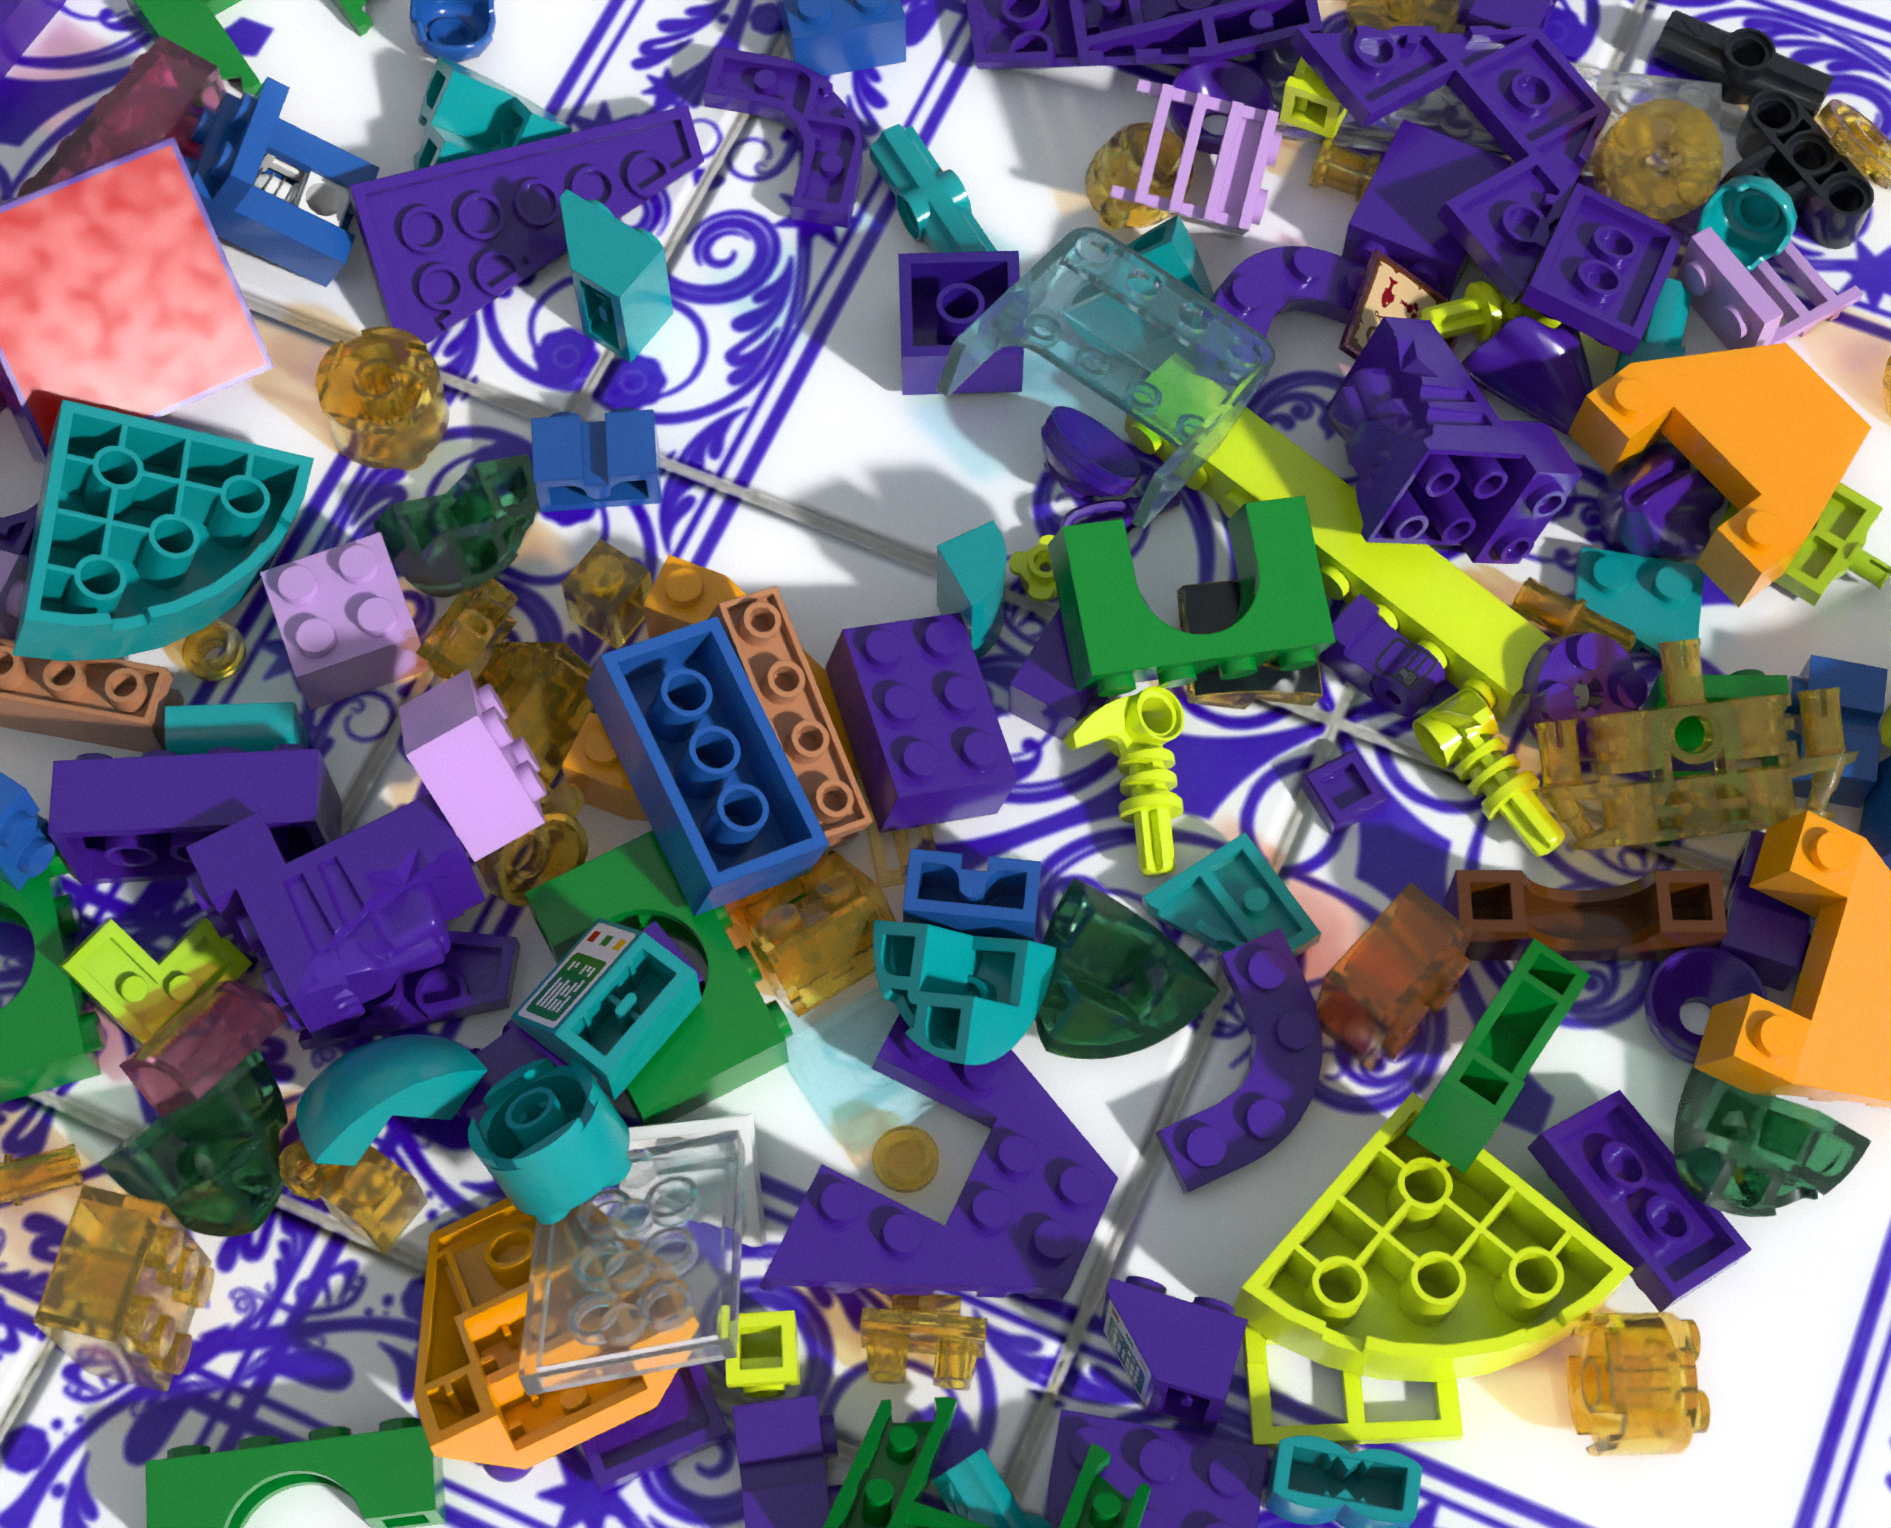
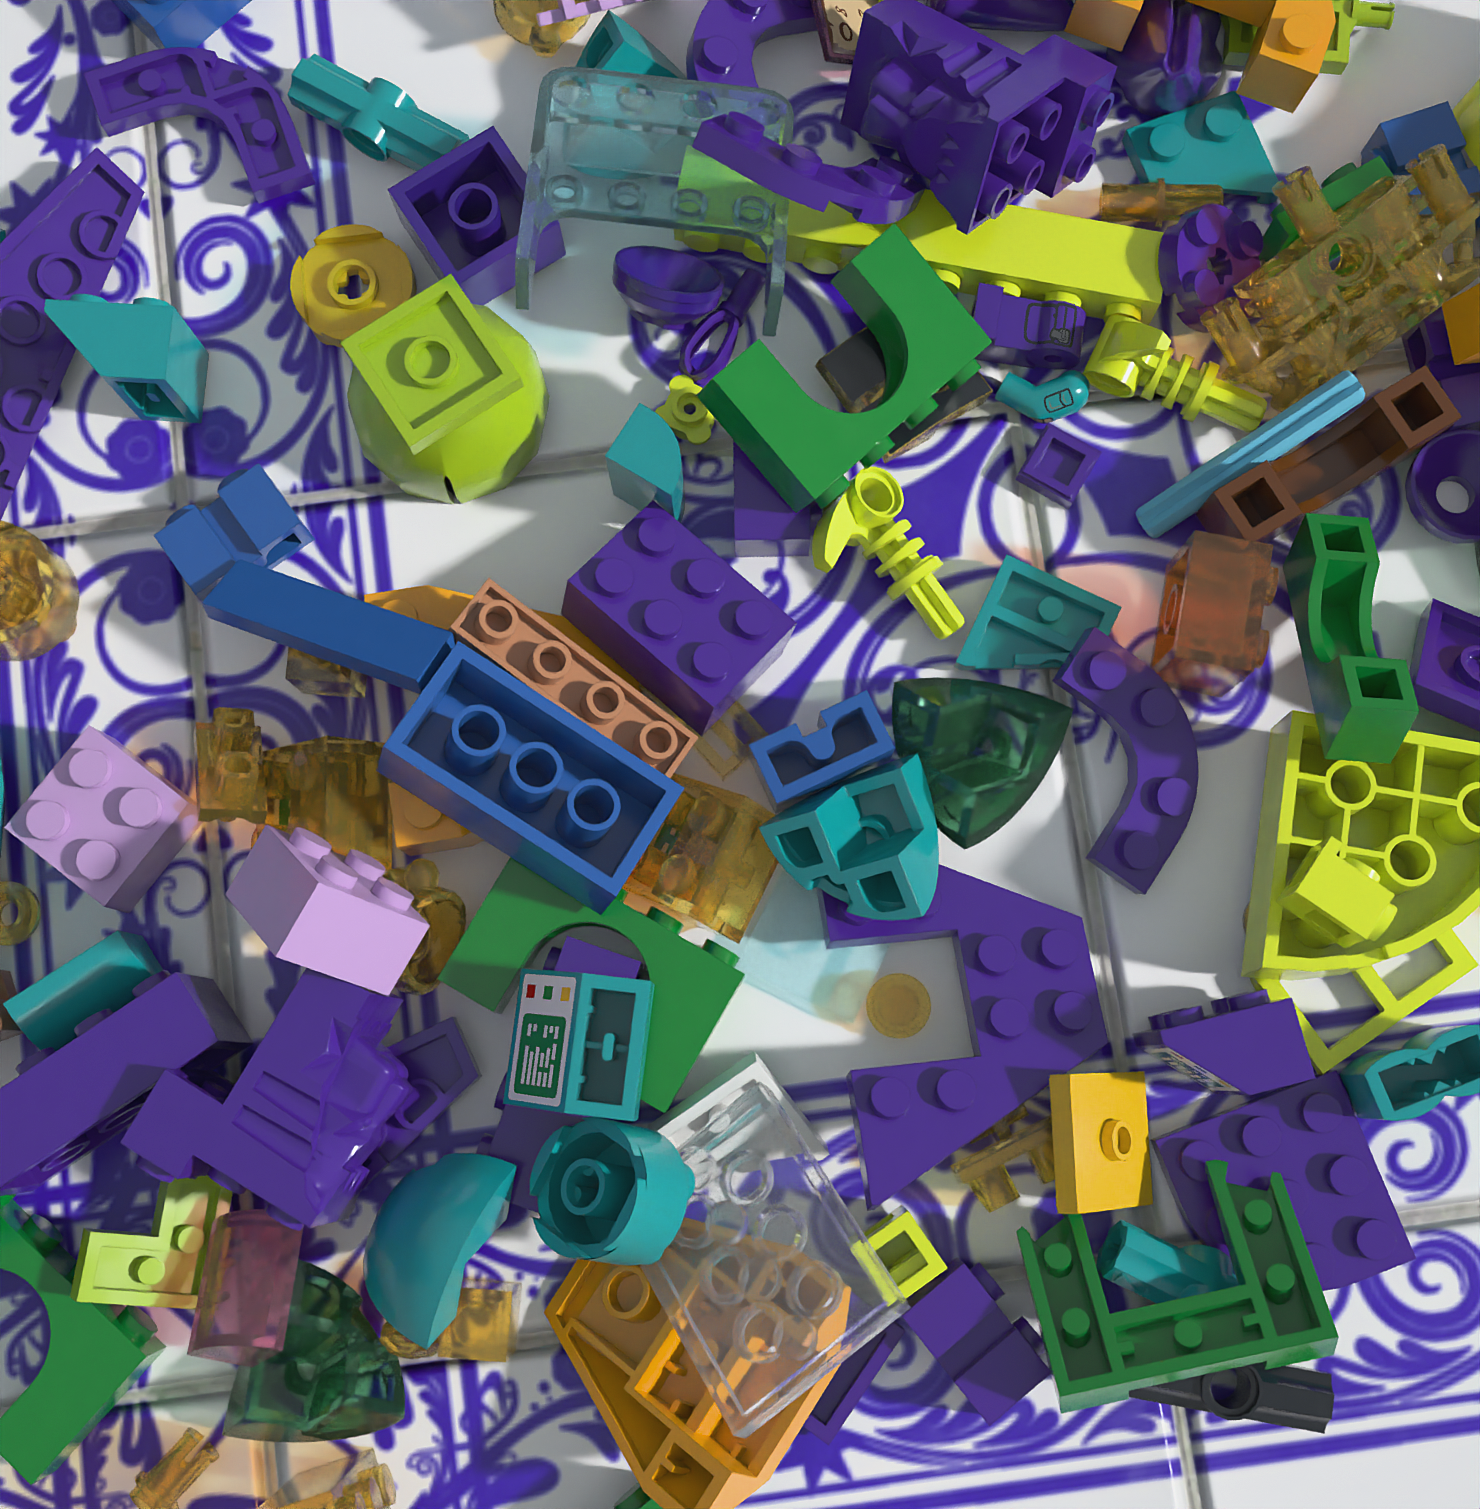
camera: 30 degrees left, 15 degrees up
(465, 535) = (164, 676): clear green brick -> none
(621, 554) = (329, 625): none -> blue tile
(832, 352) = (327, 267): none -> yellow plate
(844, 441) = (446, 394): none -> lime plate
(1008, 1368) = (1100, 1141): none -> yellow plate
(1292, 457) = (871, 191): none -> dark purple plate
(1344, 1256) = (1339, 896): none -> neon yellow brick
(1368, 730) = (1046, 401): none -> teal arm
(1539, 862) = (1262, 444): none -> medium azure axle

